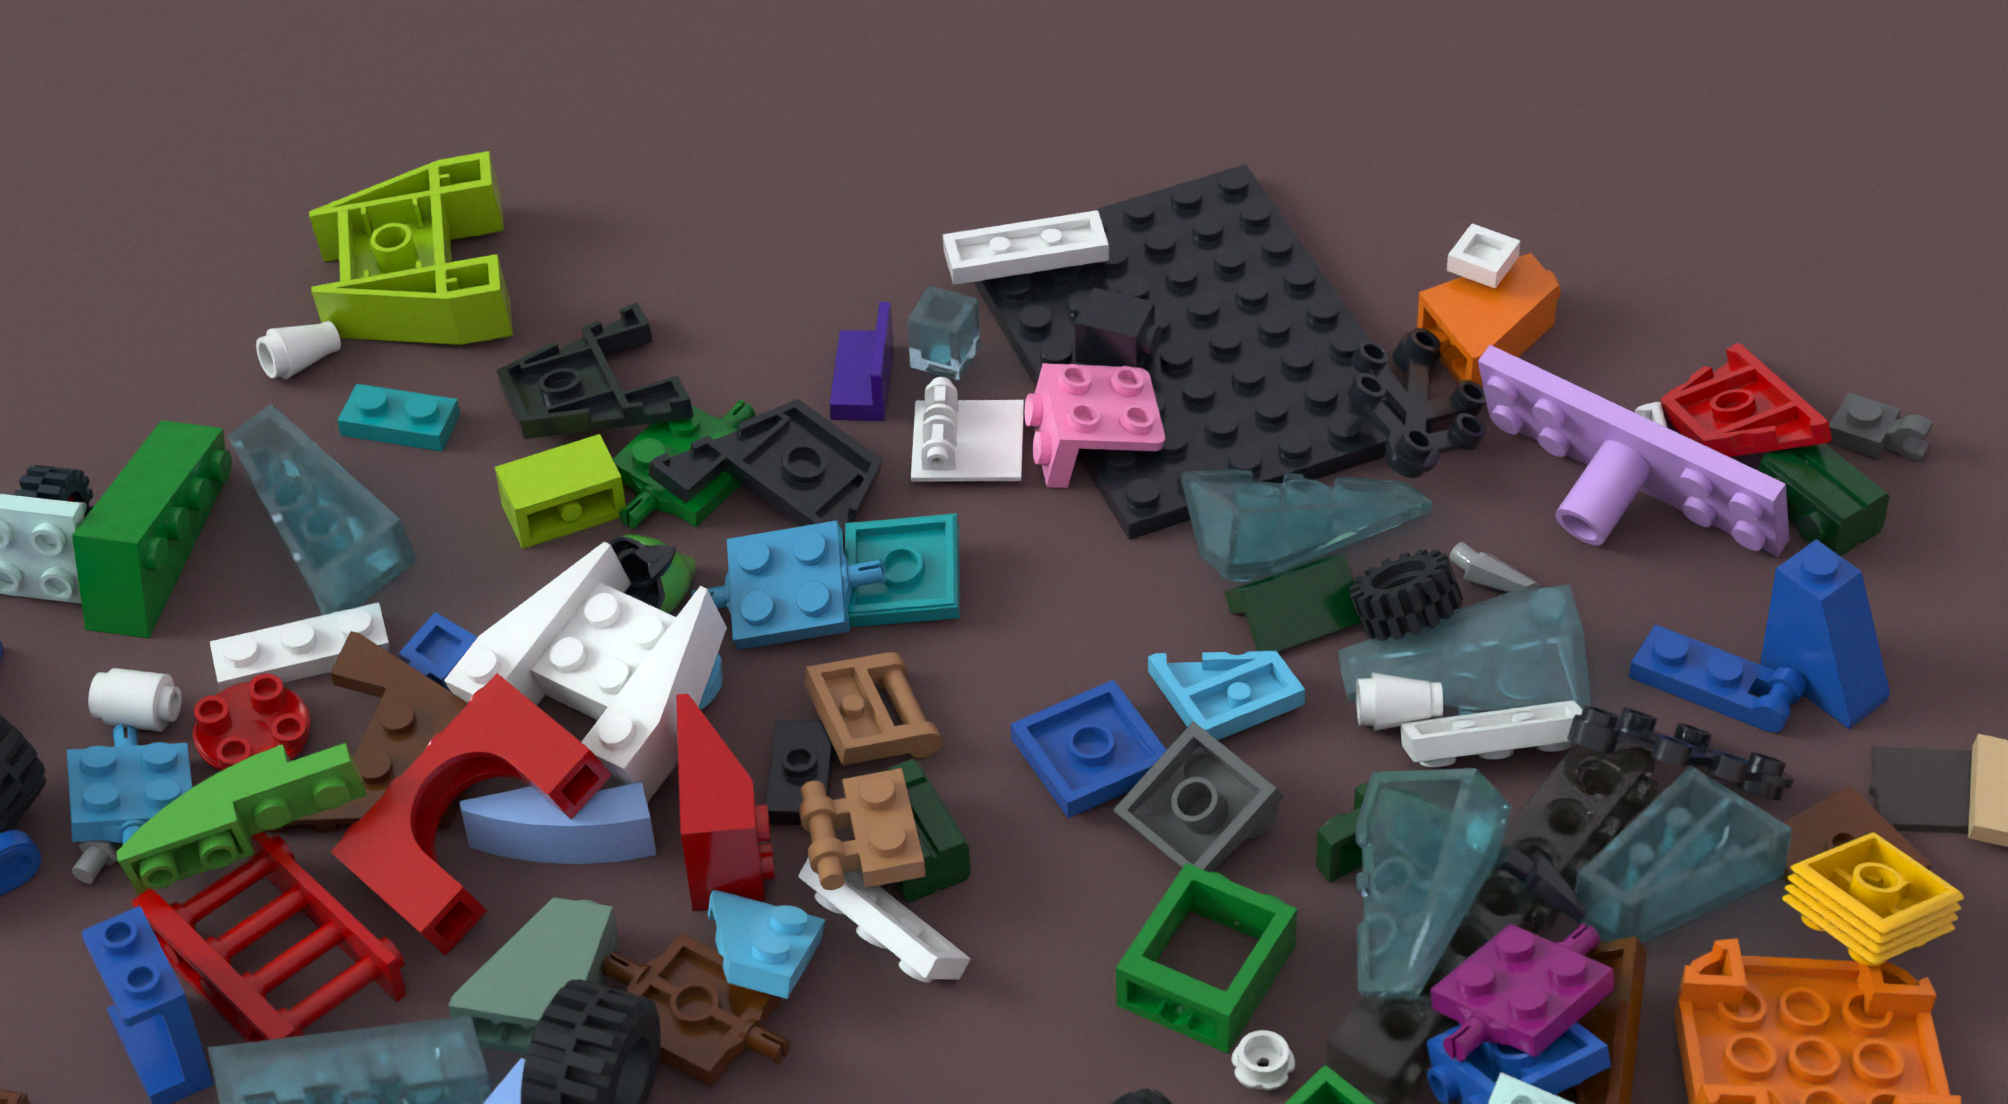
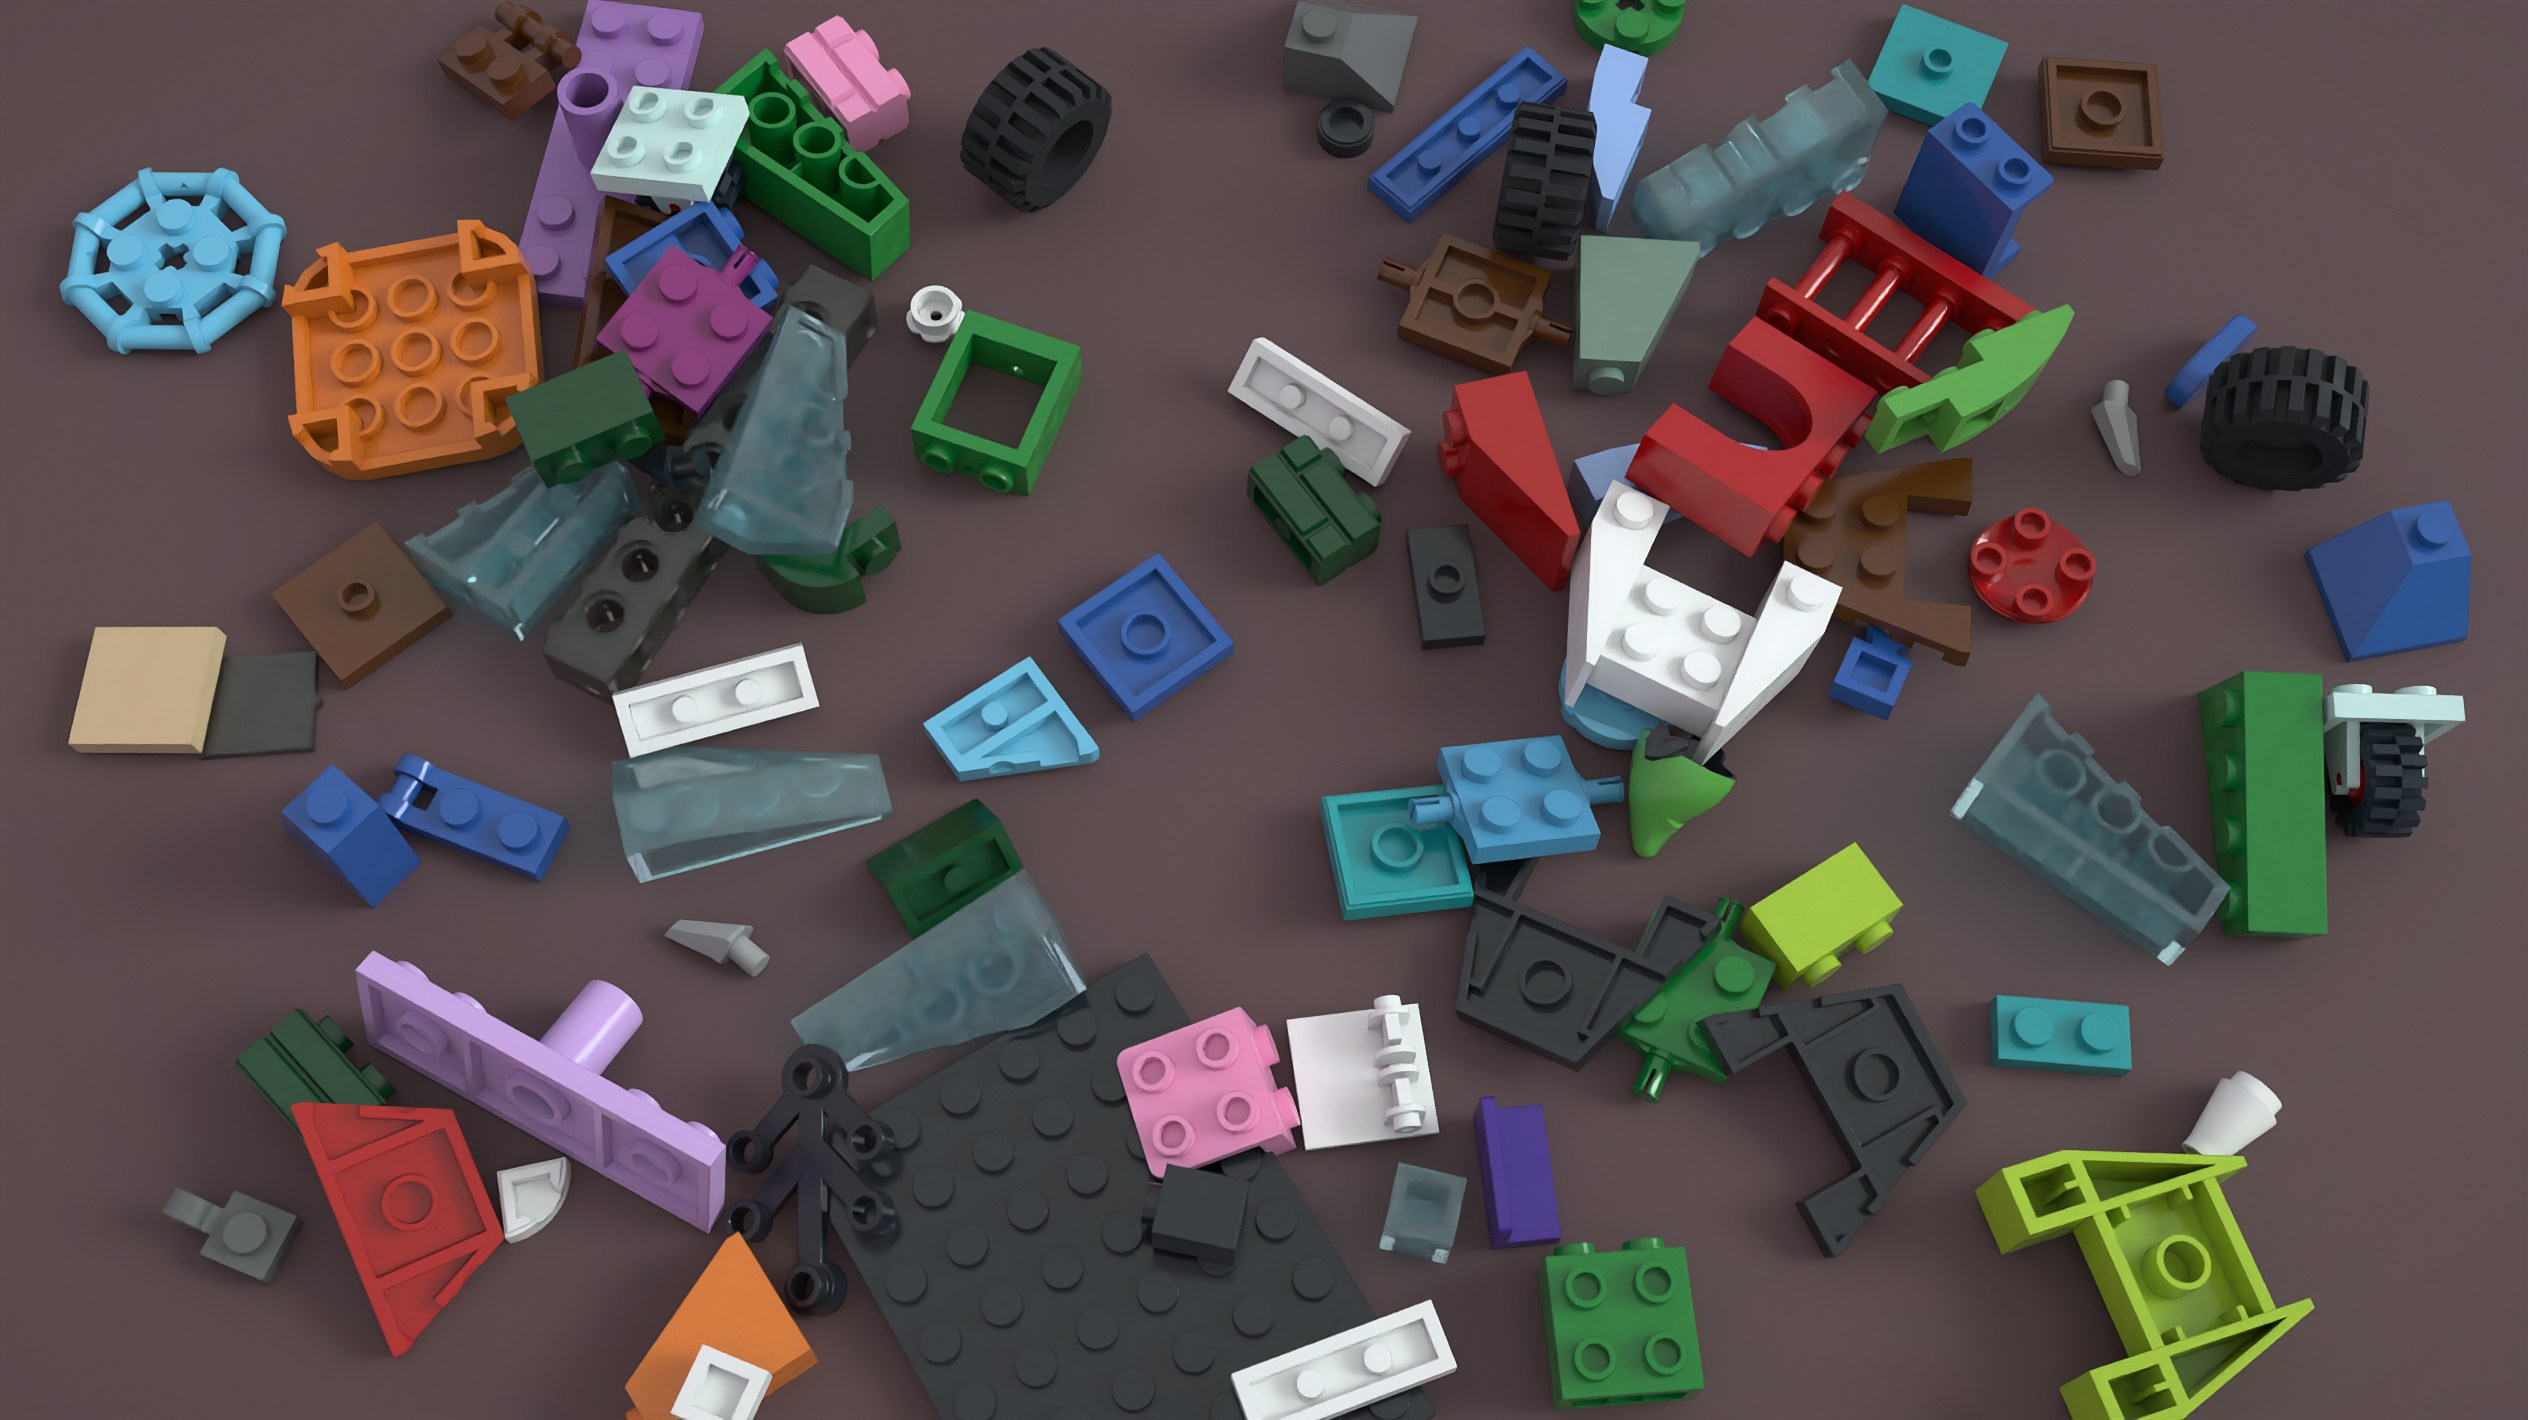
camera: 165 degrees right, 20 degrees up
(123, 785) = (2113, 464): dark azure plate -> none
(134, 699) = (2165, 577): white brick -> none
(294, 648) = (1999, 691): white plate -> none
(763, 943) = (1421, 356): medium azure wing -> none
(814, 266) = (1619, 1325): none -> green brick
(857, 716) = (1404, 645): medium nougat plate -> none
(882, 829) = (1337, 460): medium nougat plate -> none
(1200, 801) = (1018, 569): dark grey slope -> none
(1392, 700) = (822, 727): white cone -> none
(1406, 595) = (776, 843): black tyre -> none
(1616, 881) = (585, 420): none -> dark green brick
(1688, 747) = (504, 662): black plant -> none
(1872, 899) = (295, 486): yellow brick -> none

